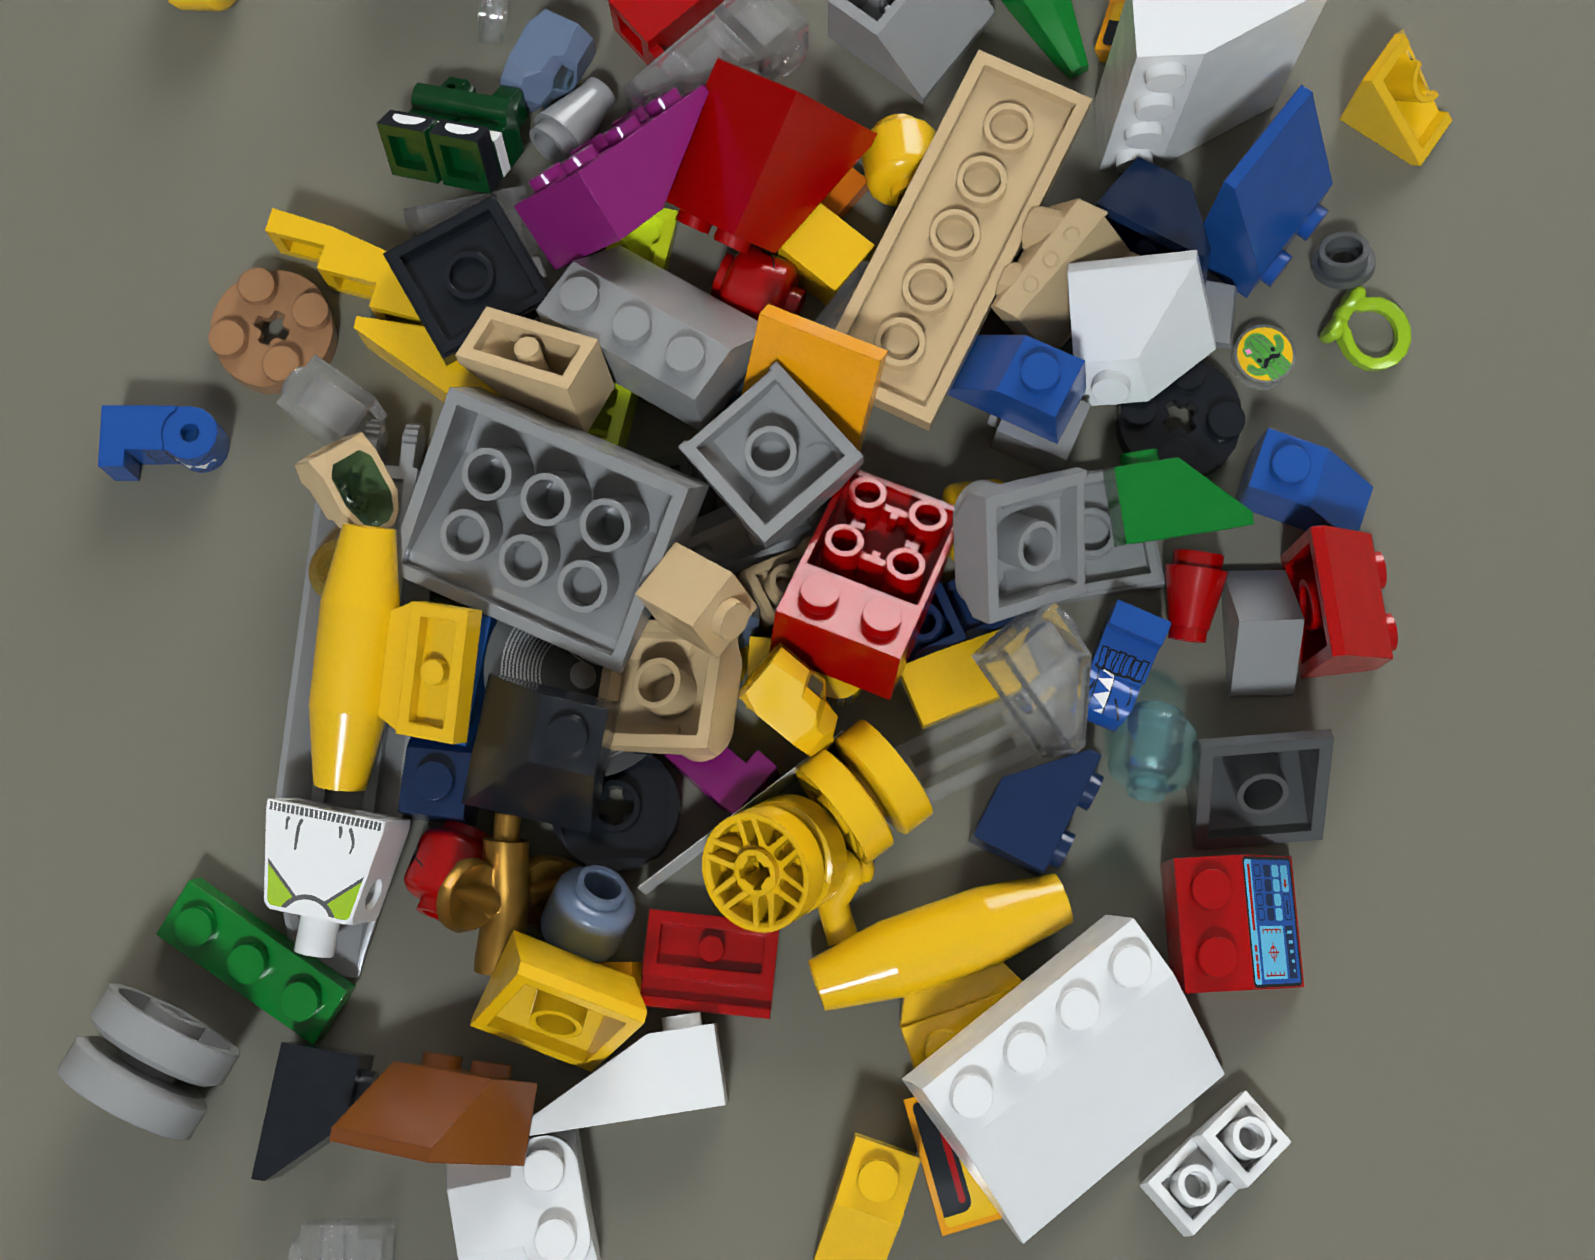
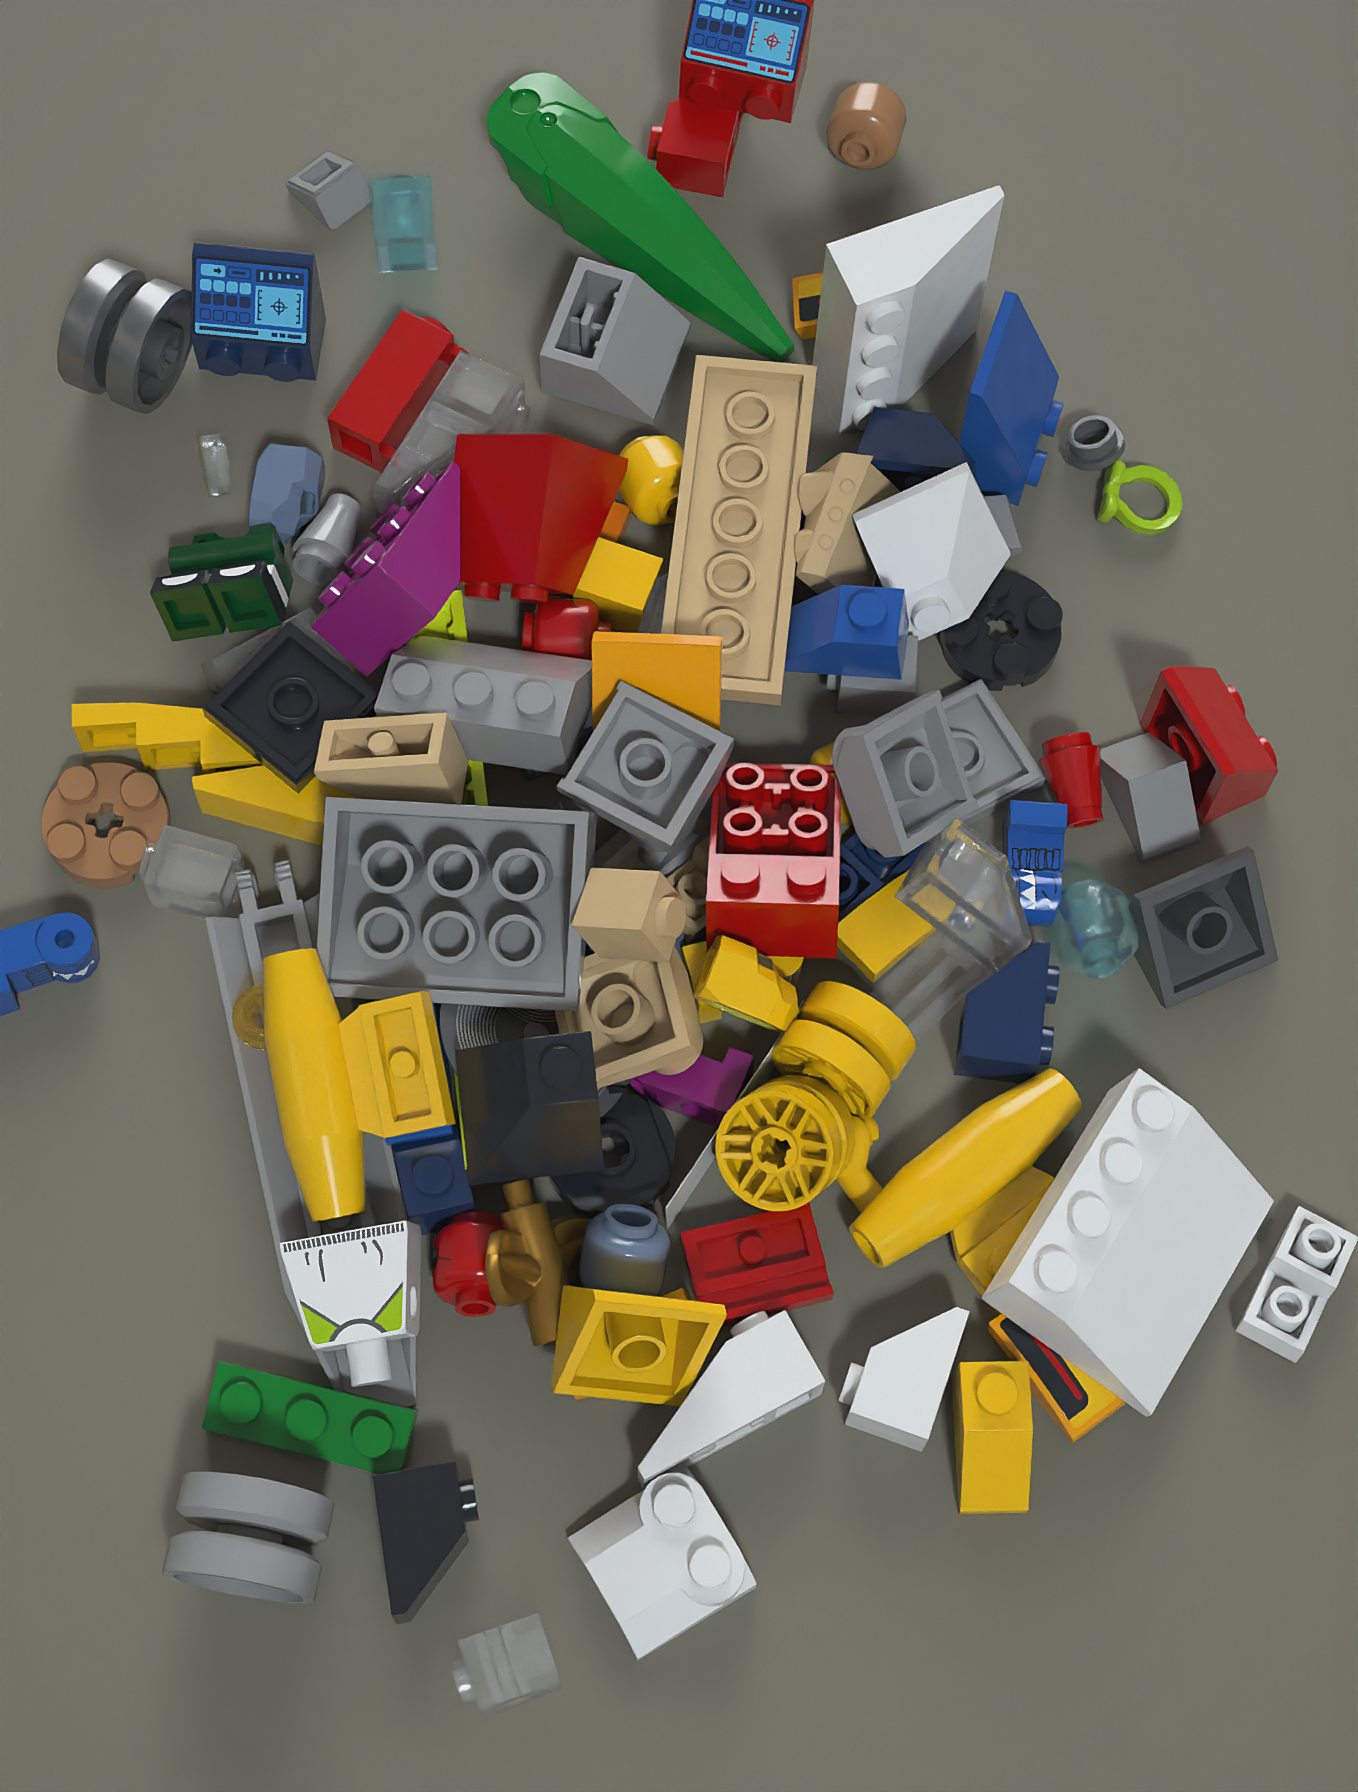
camera: 25 degrees left, 10 degrees down
(351, 483) = (246, 926): rock -> none
(443, 1113) = (561, 1481): dark orange slope -> none
(804, 1125) = (904, 1381): none -> white slope
(1166, 500) = (1020, 699): green slope -> none
(1232, 923) = (1225, 1057): red slope -> none
(1262, 357) = (1054, 551): tile -> none
(1302, 484) = (1129, 646): blue slope -> none
(1397, 105) = (1088, 297): yellow slope -> none

